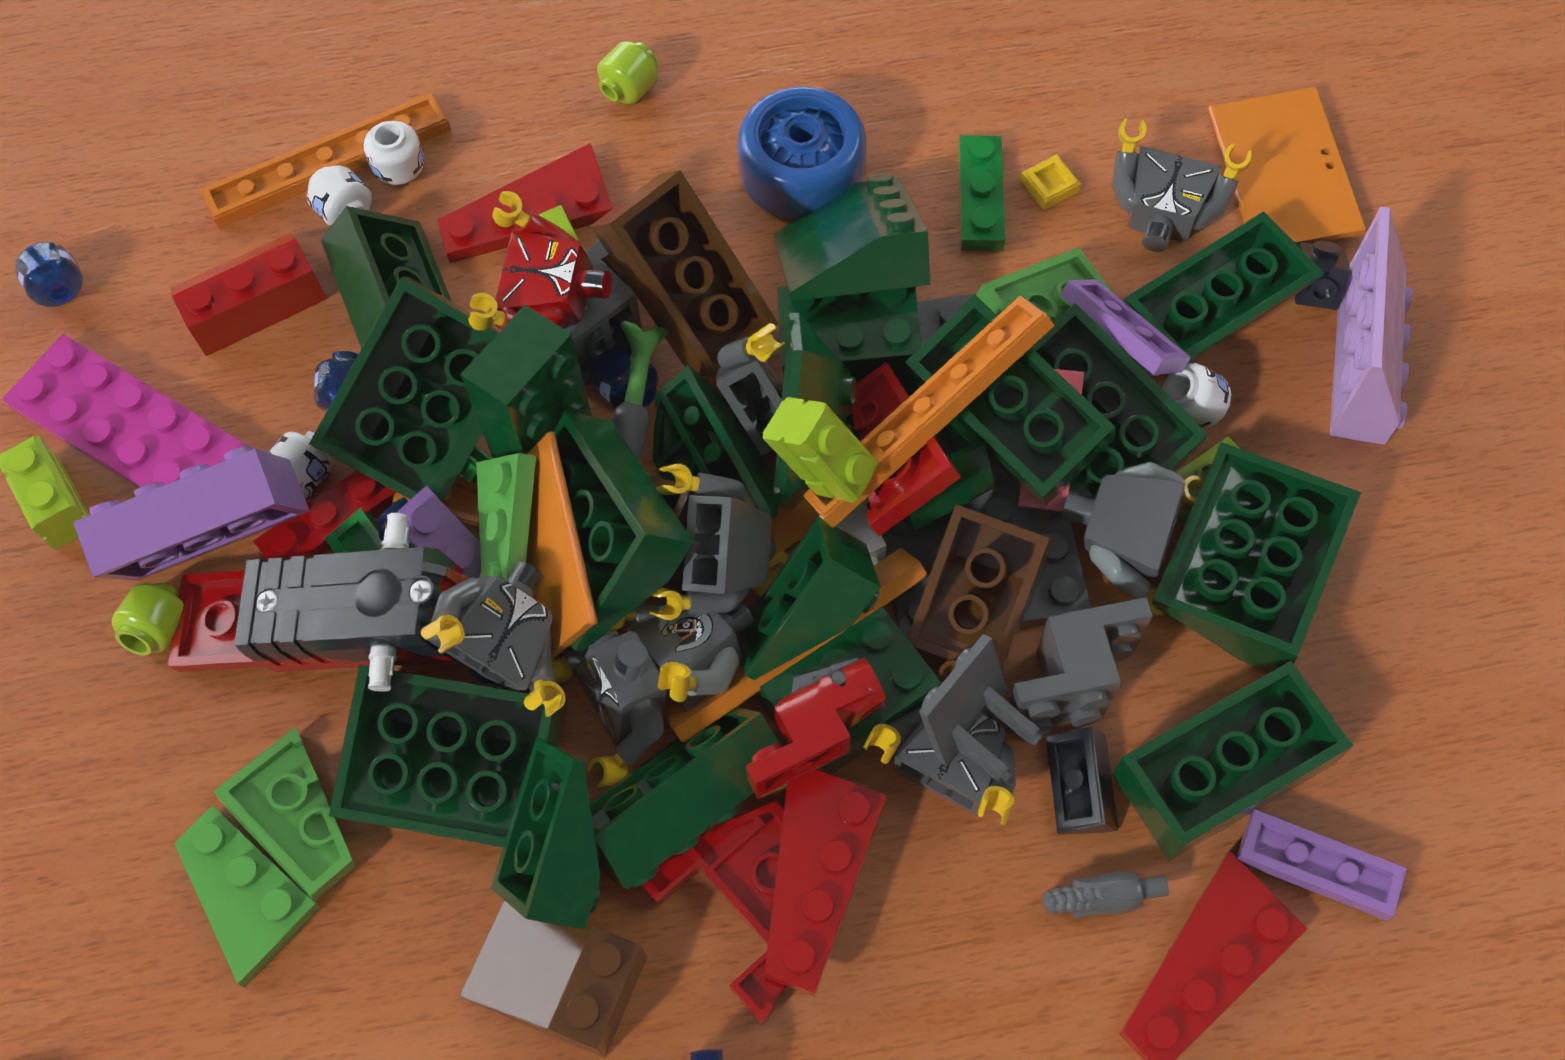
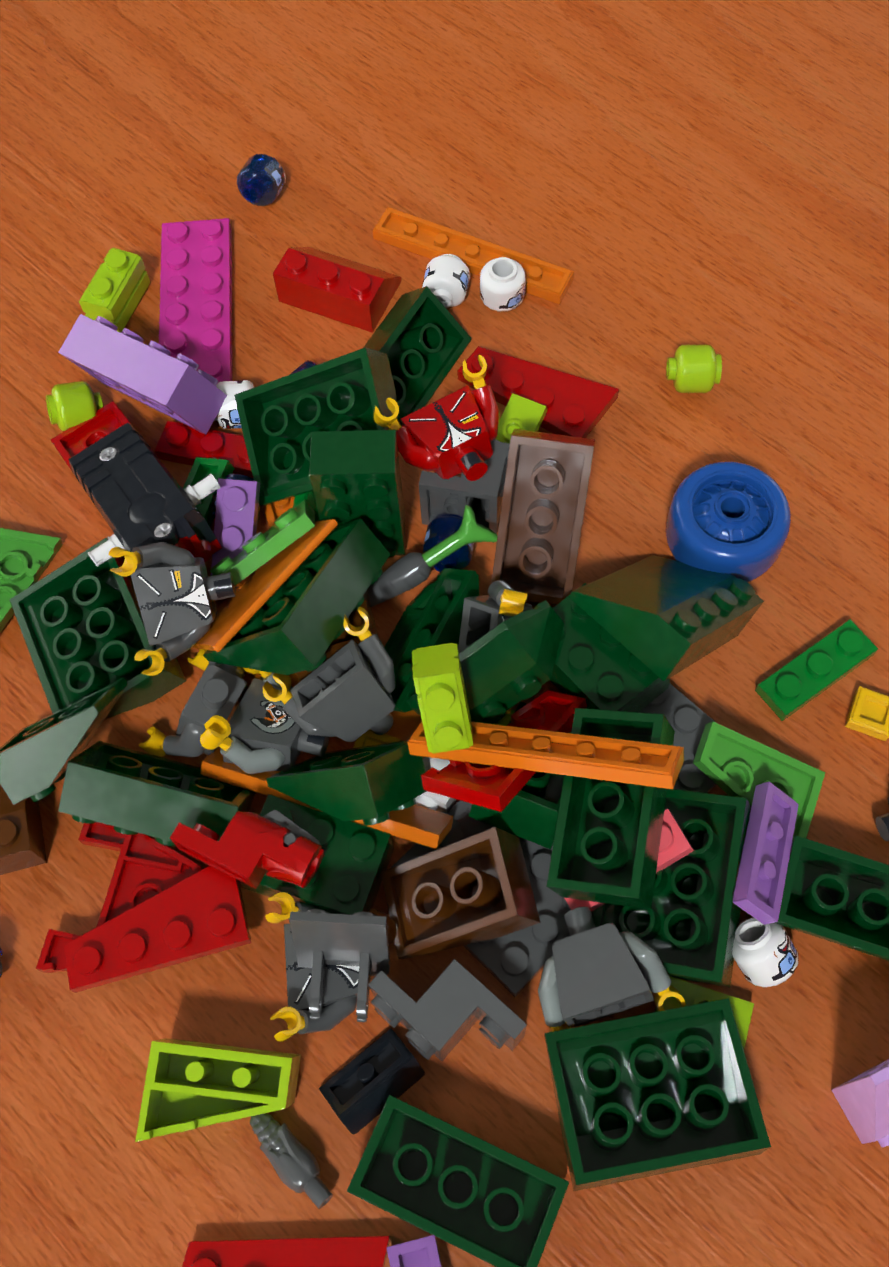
camera: 55 degrees right, 0 degrees up
(997, 917) = (212, 1084): none -> lime wedge

